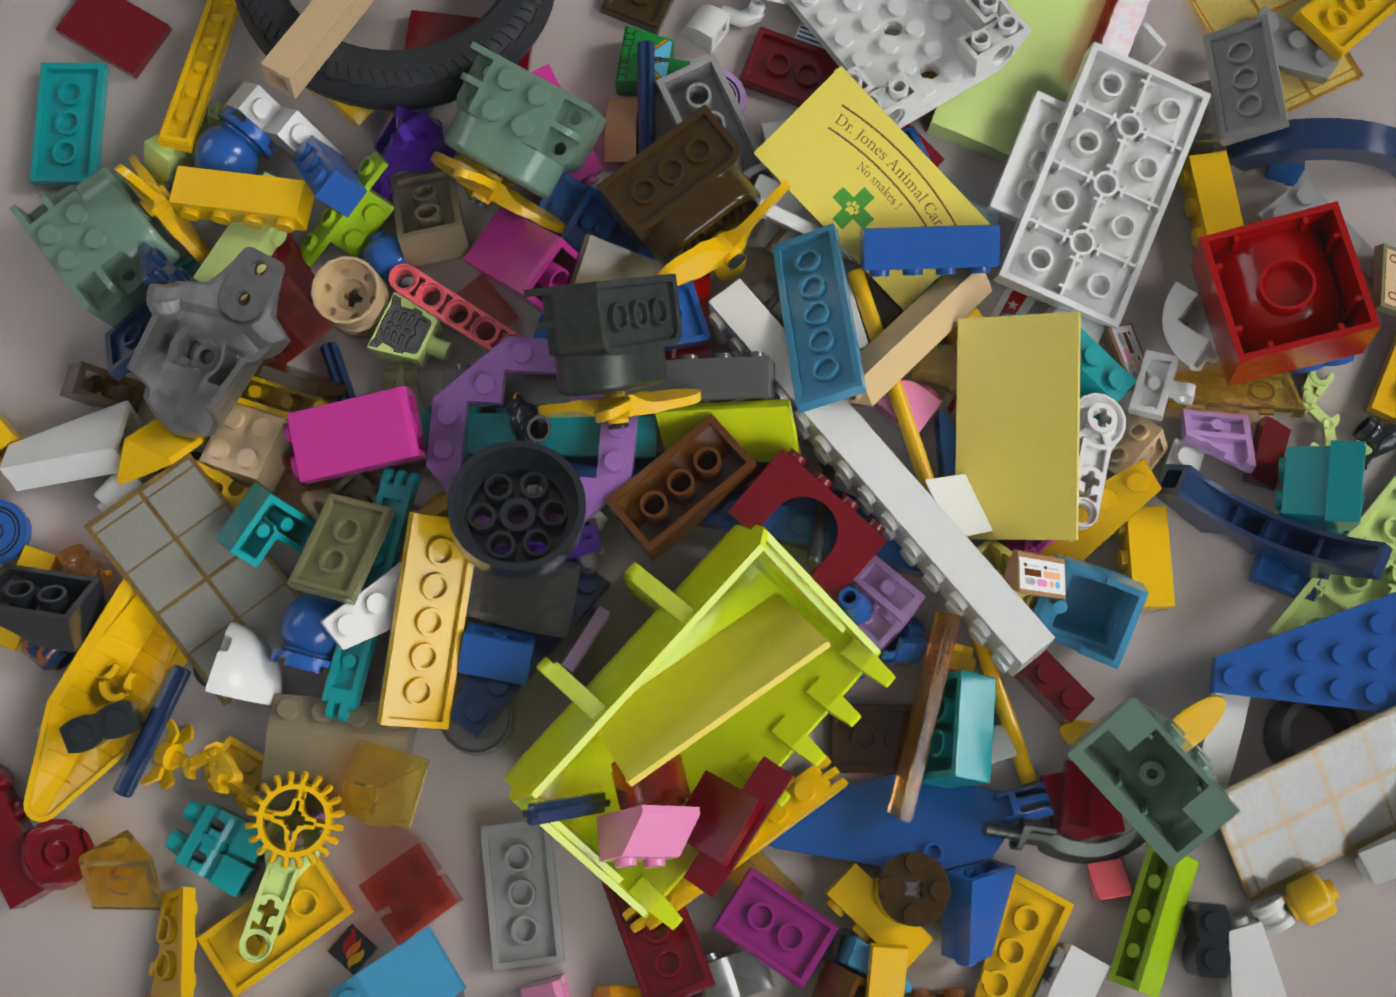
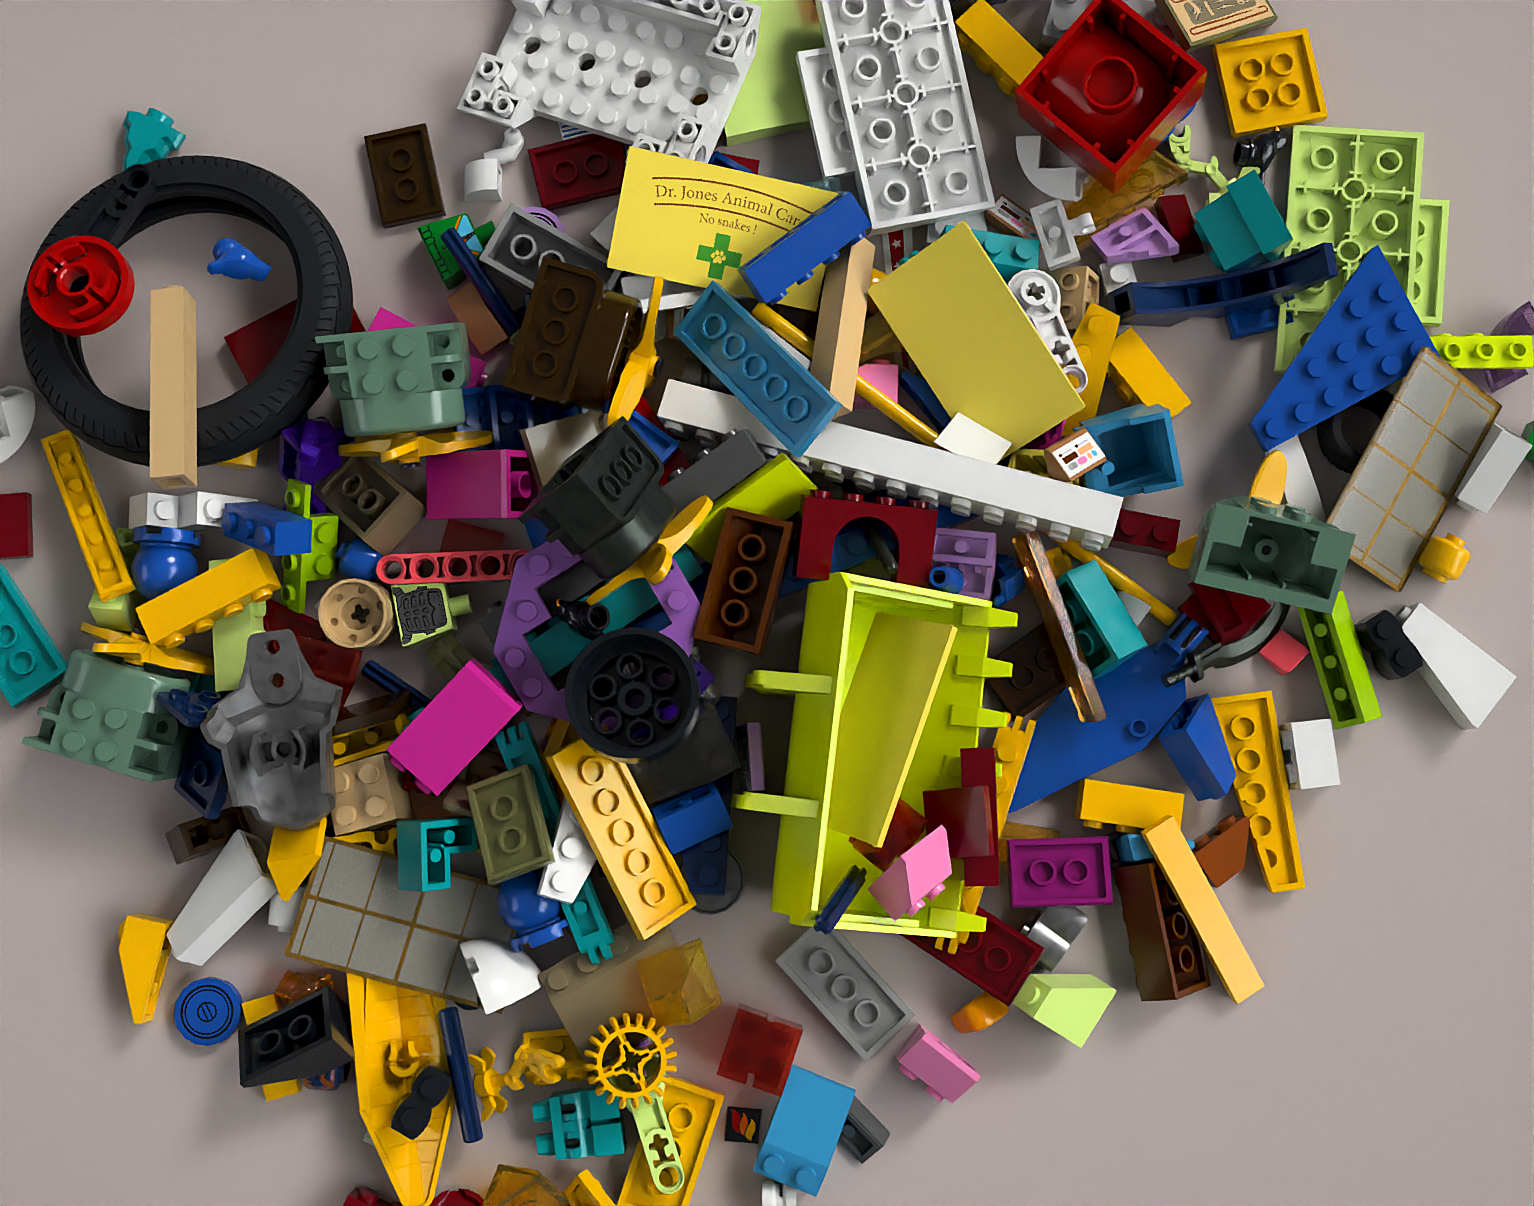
camera: 30 degrees left, 5 degrees up
(931, 888) = (1159, 759): dark brown brick -> none
(1272, 914) = (1424, 590): white wheel -> none

